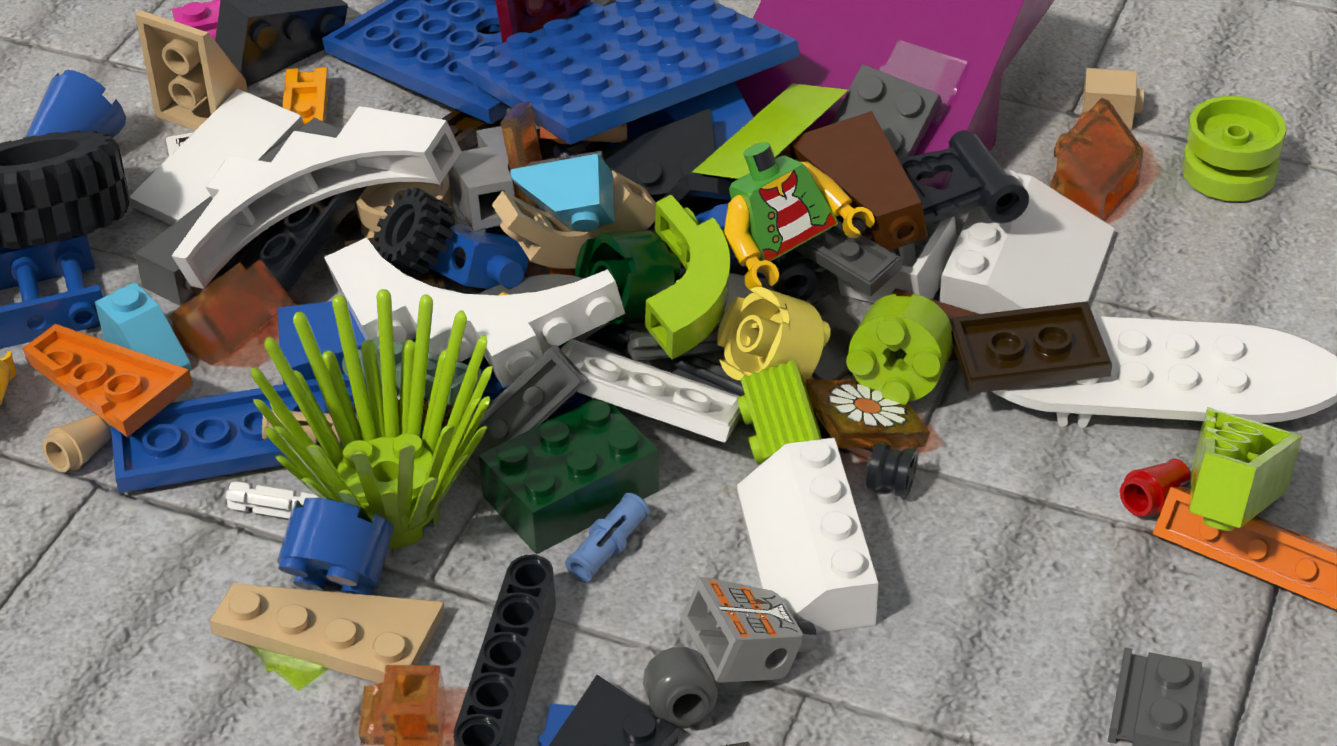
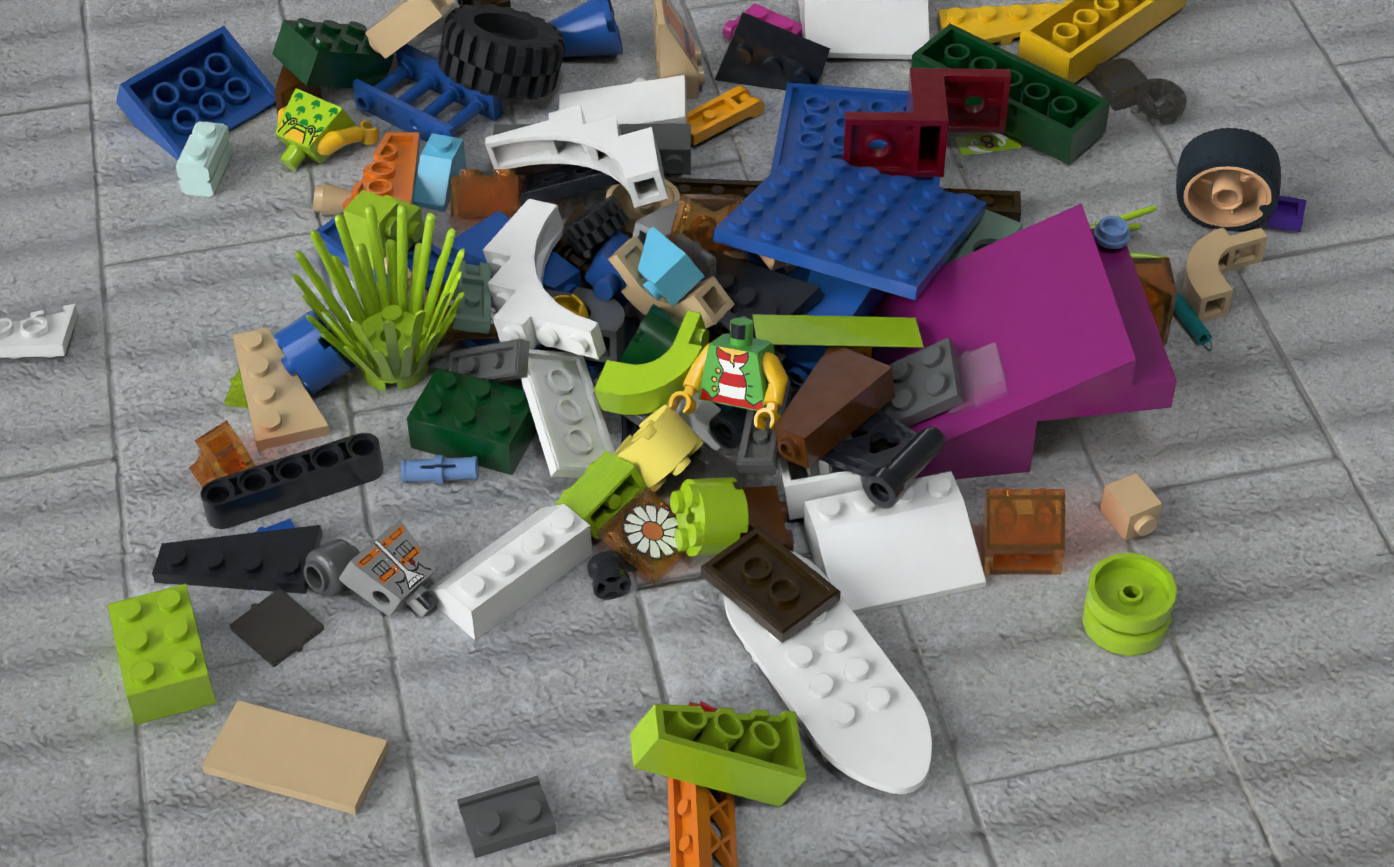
camera: 55 degrees right, 5 degrees up
(216, 404) = (386, 213): none -> lime brick

